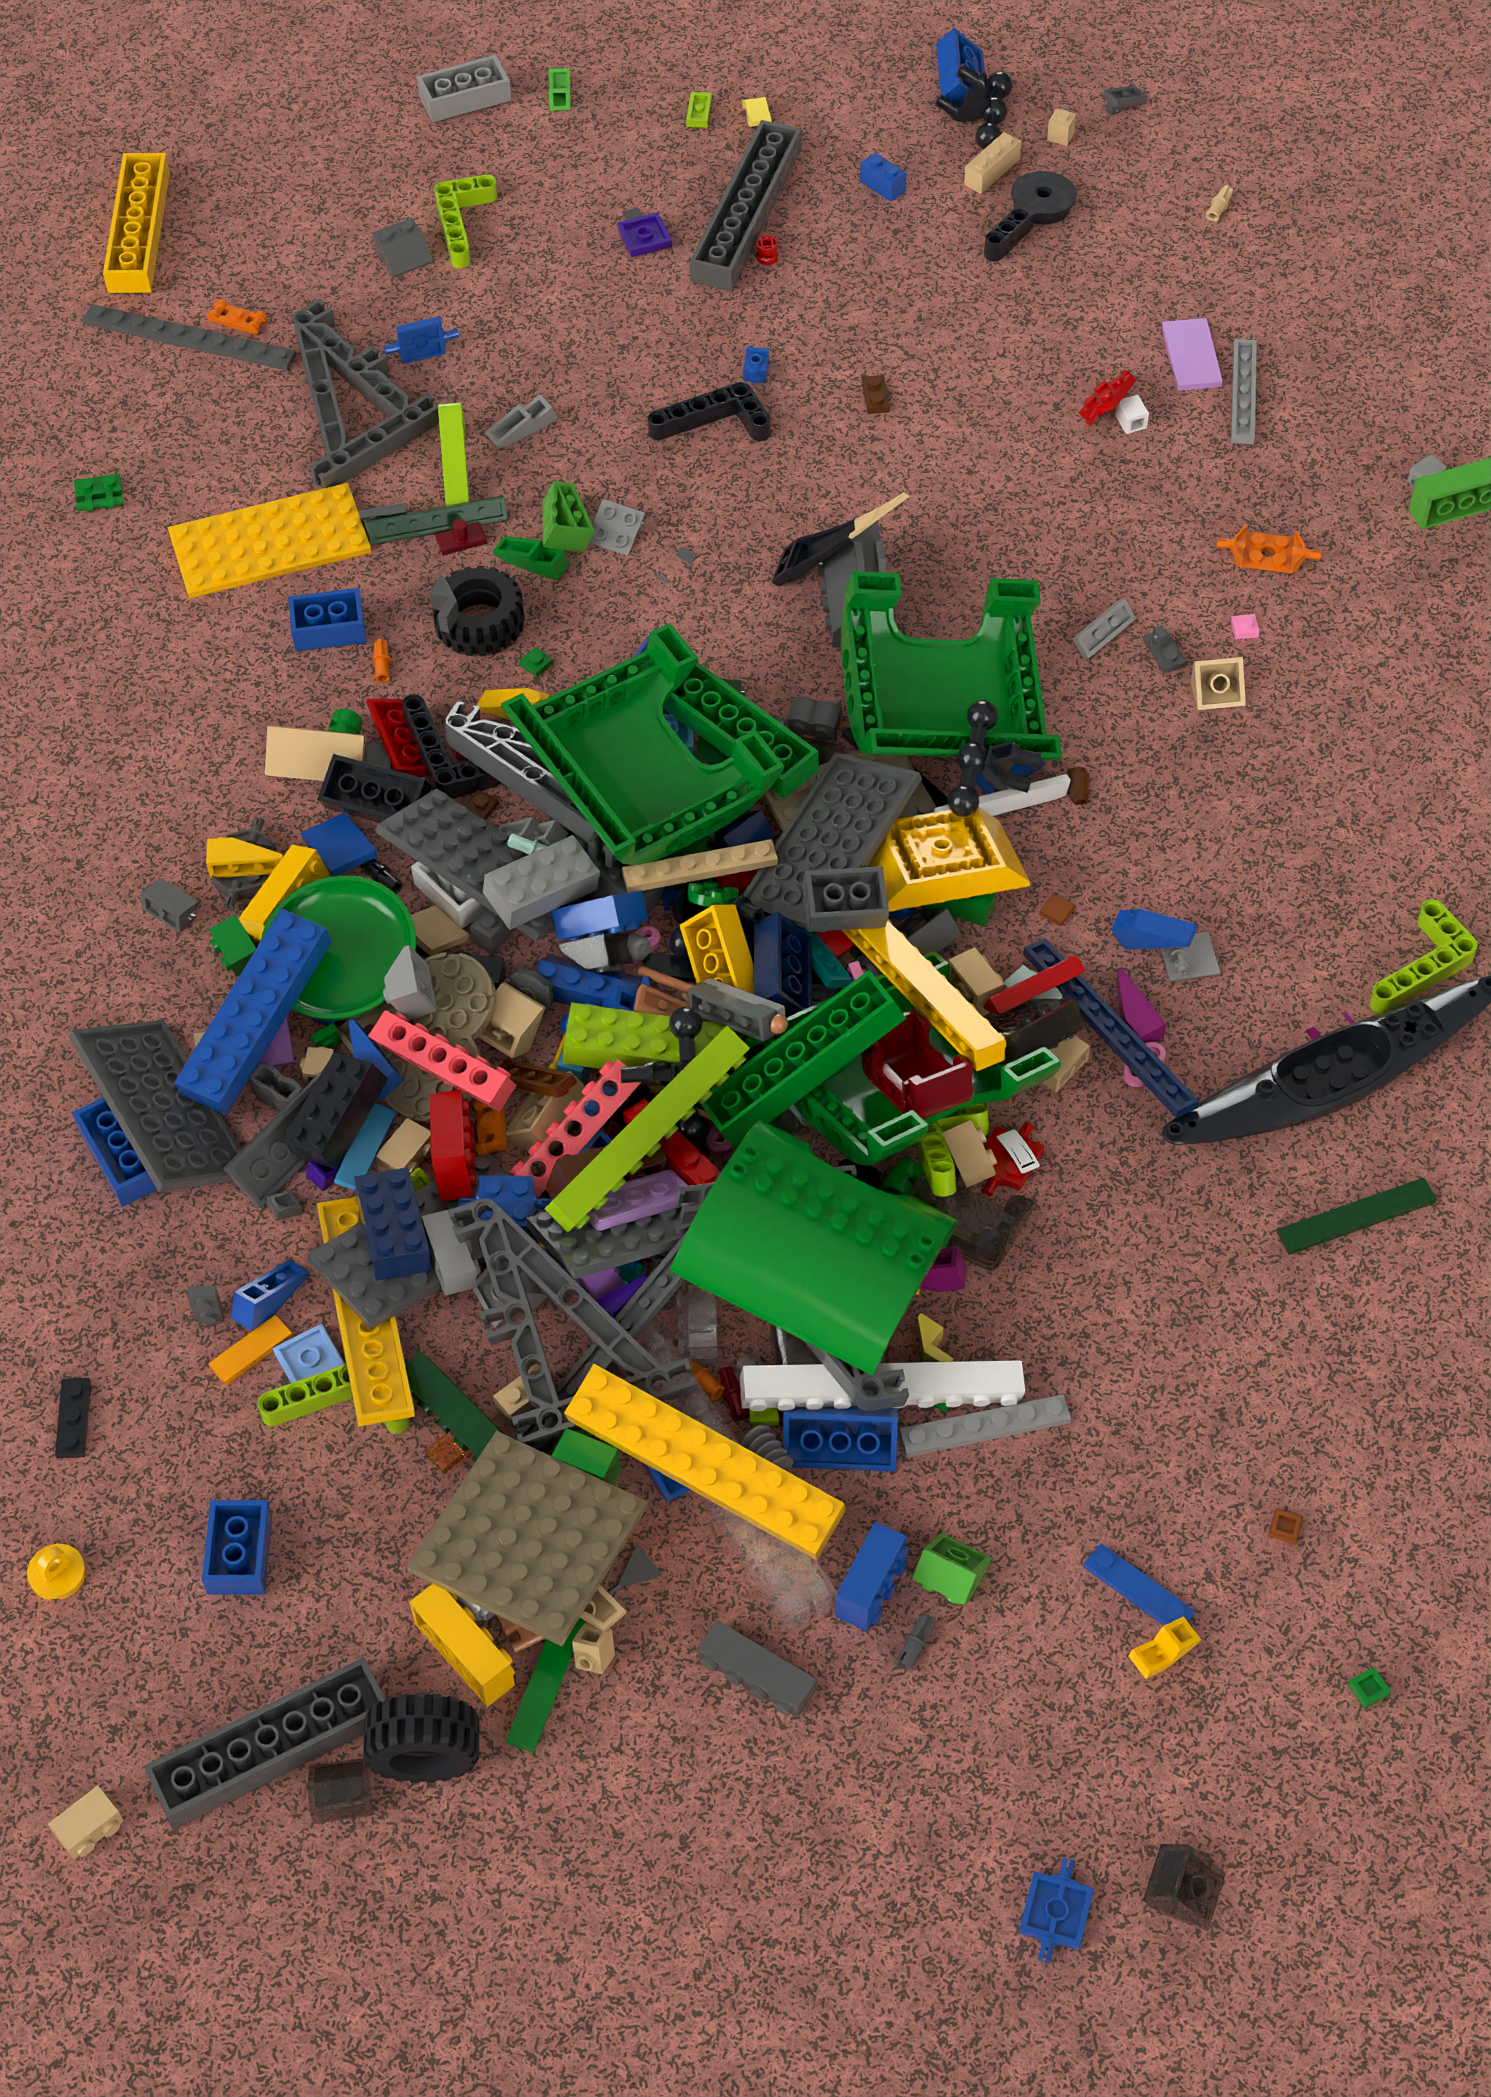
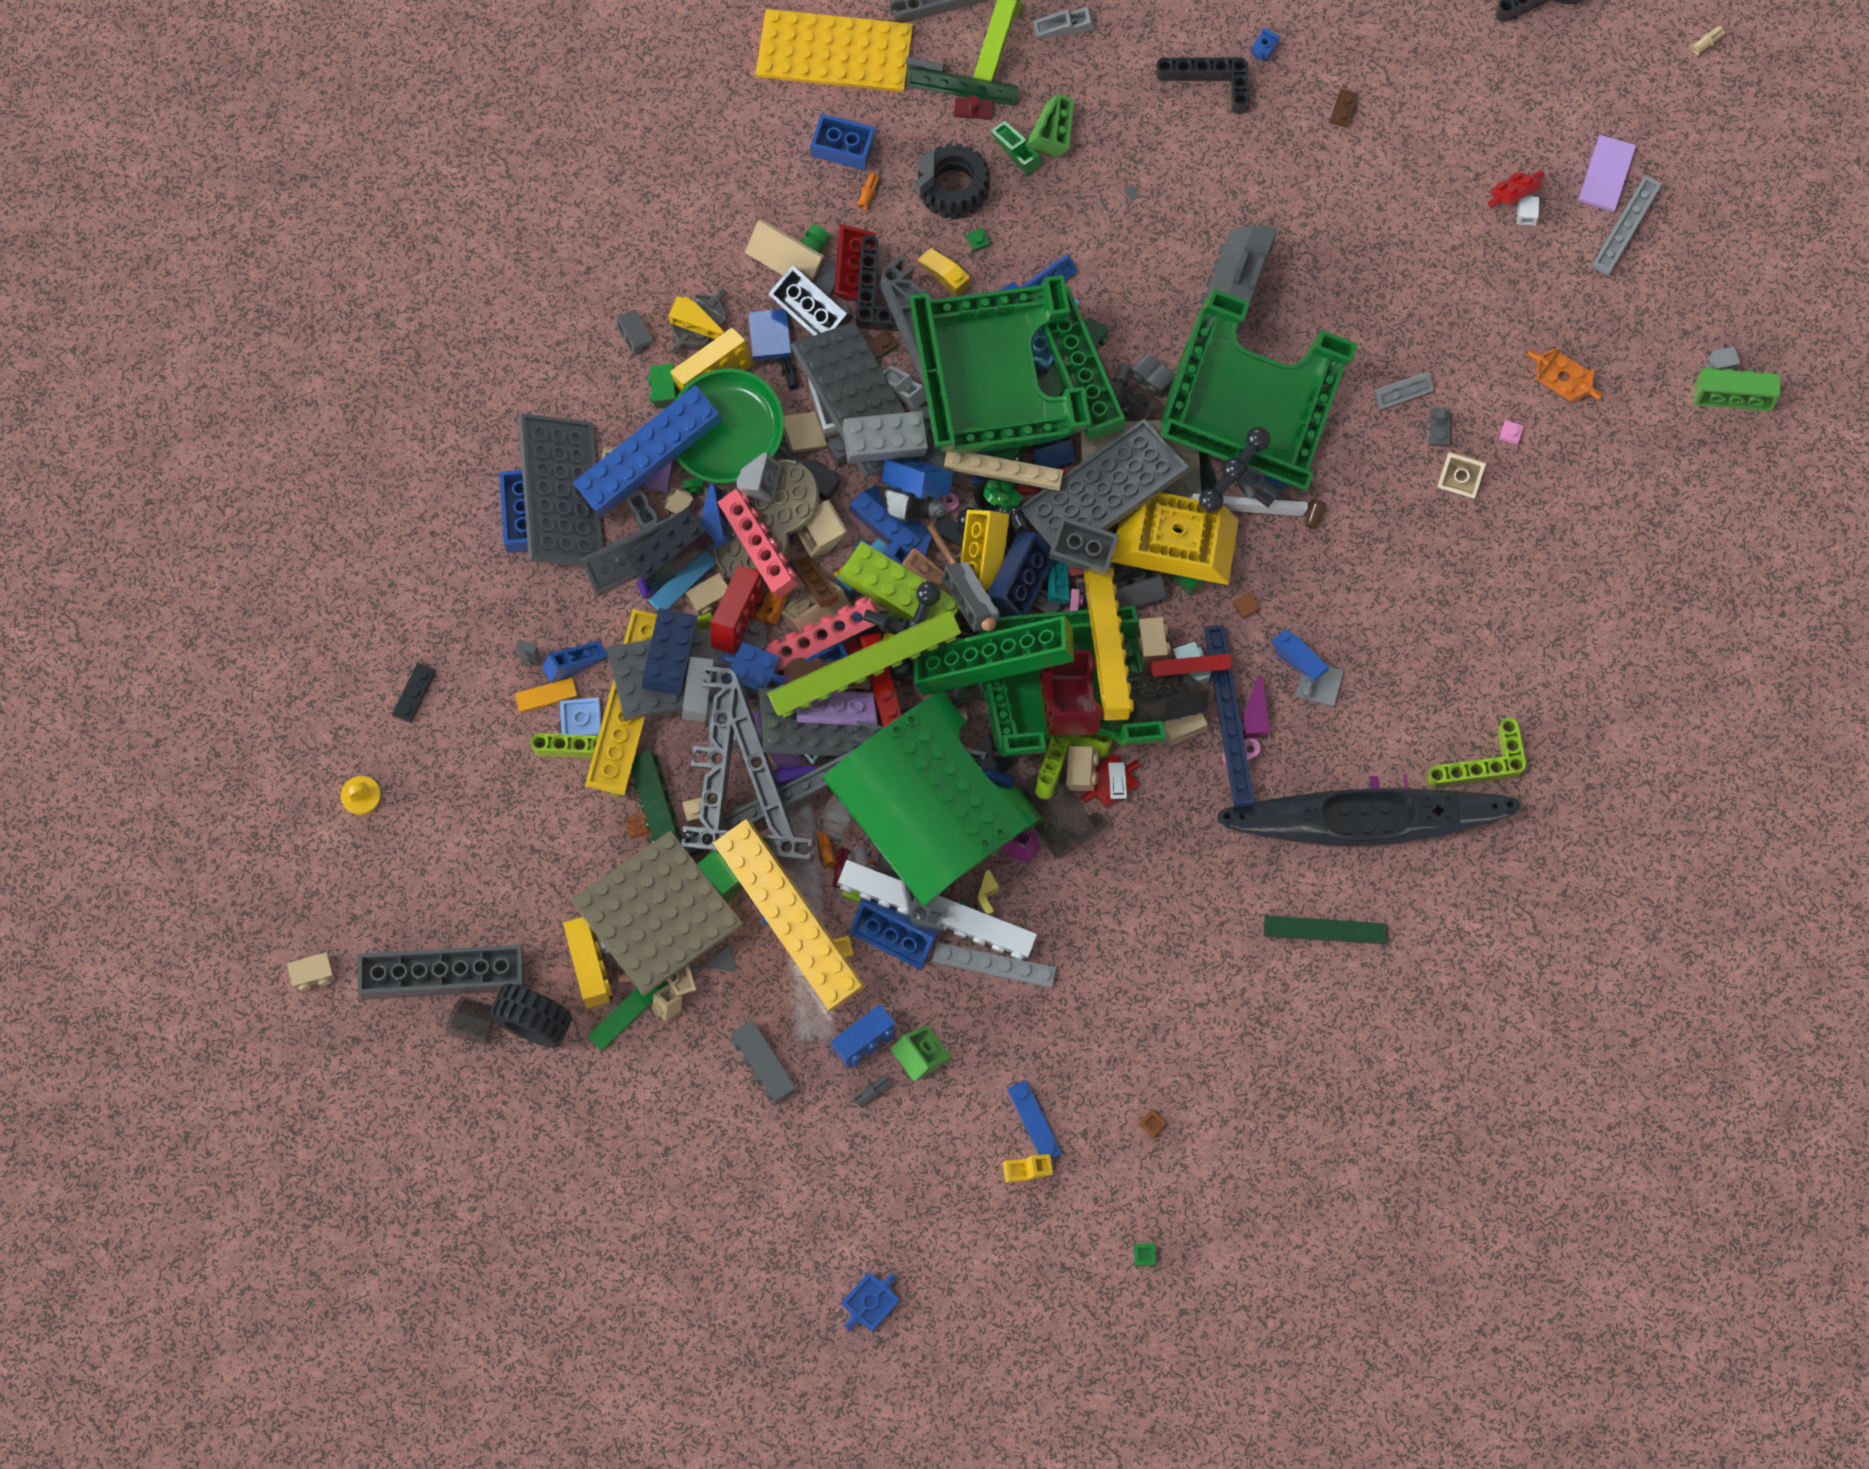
camera: 25 degrees right, 15 degrees up
(237, 1547) = (477, 832): blue brick -> none
(284, 1205) = (612, 599): dark grey tile -> none
(524, 845) = (897, 400): light aqua axle -> none
(534, 983) = (852, 514): dark grey plate -> none
(616, 526) = (1090, 147): light grey hinge -> none
(764, 1444) = (839, 922): light grey piece -> none
(812, 549) = (1219, 235): black plate -> none
(902, 1177) = (1028, 767): green wheel -> none
(1184, 1885) = (957, 1324): clear smoke slope -> none

